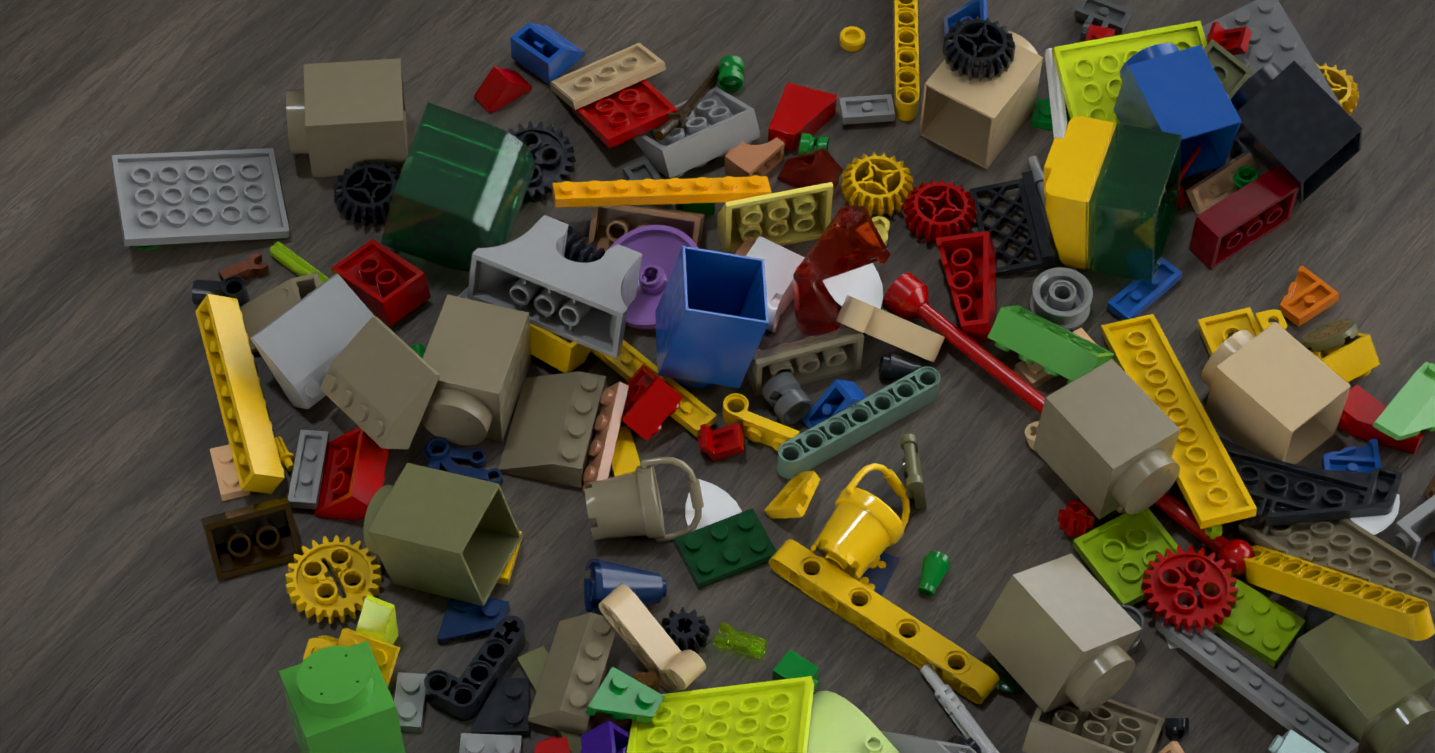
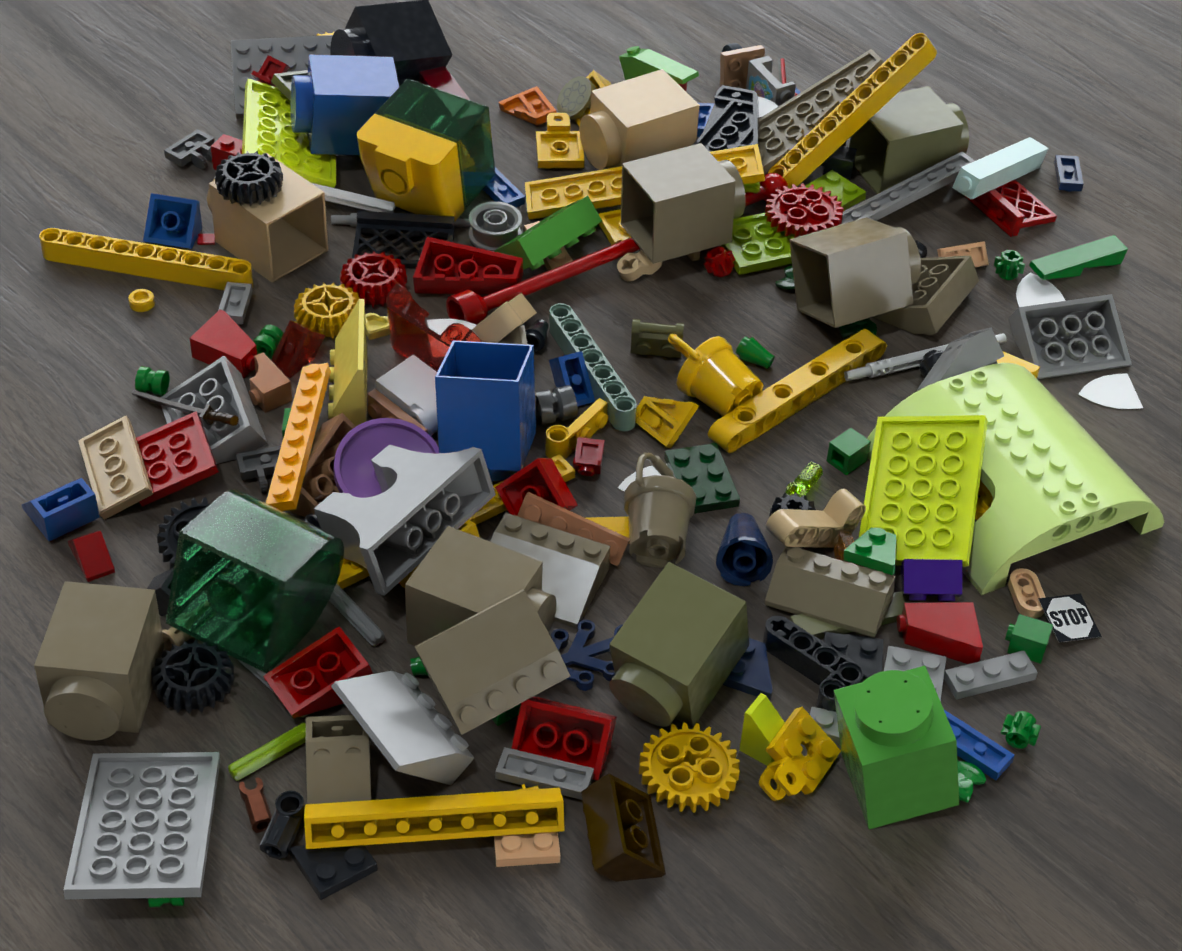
camera: 80 degrees left, 10 degrees down
(186, 340) = (333, 867): none -> black wing

